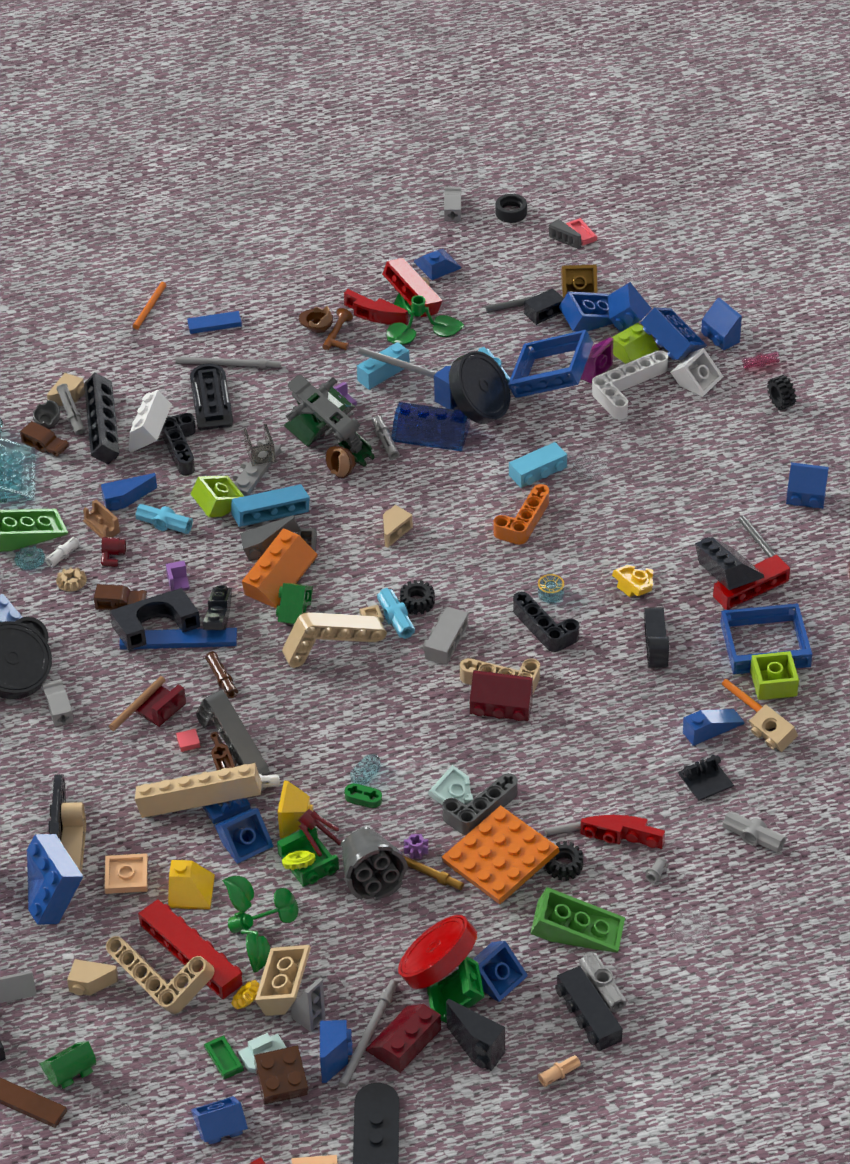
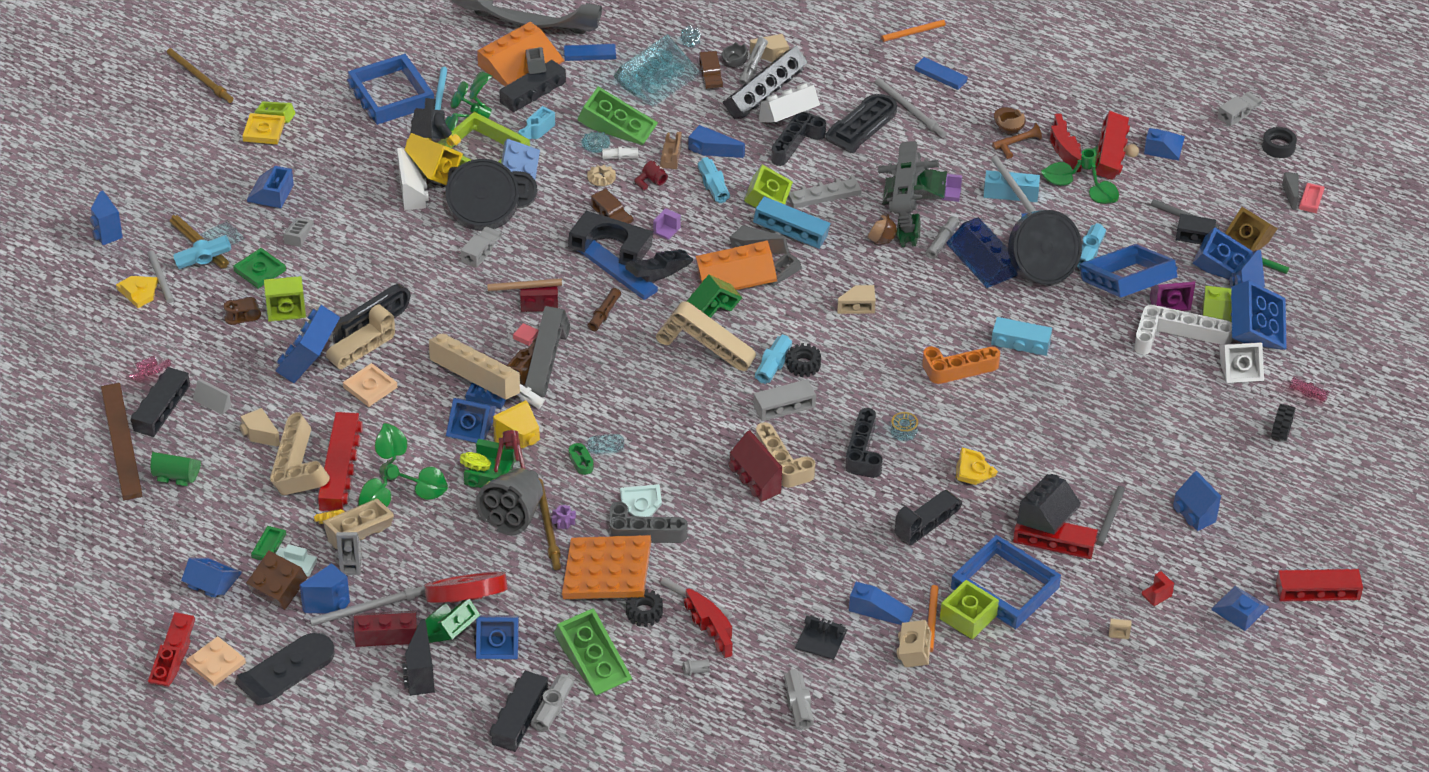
camera: 45 degrees right, 0 degrees up
(190, 885) = (398, 414): yellow slope -> none
(253, 451) = (841, 182): clear smoke piece -> none
(372, 611) = (759, 347): tan tile -> none
(558, 1070) = (445, 731): light nougat axle -> none
(722, 325) = (1309, 341): blue slope -> none

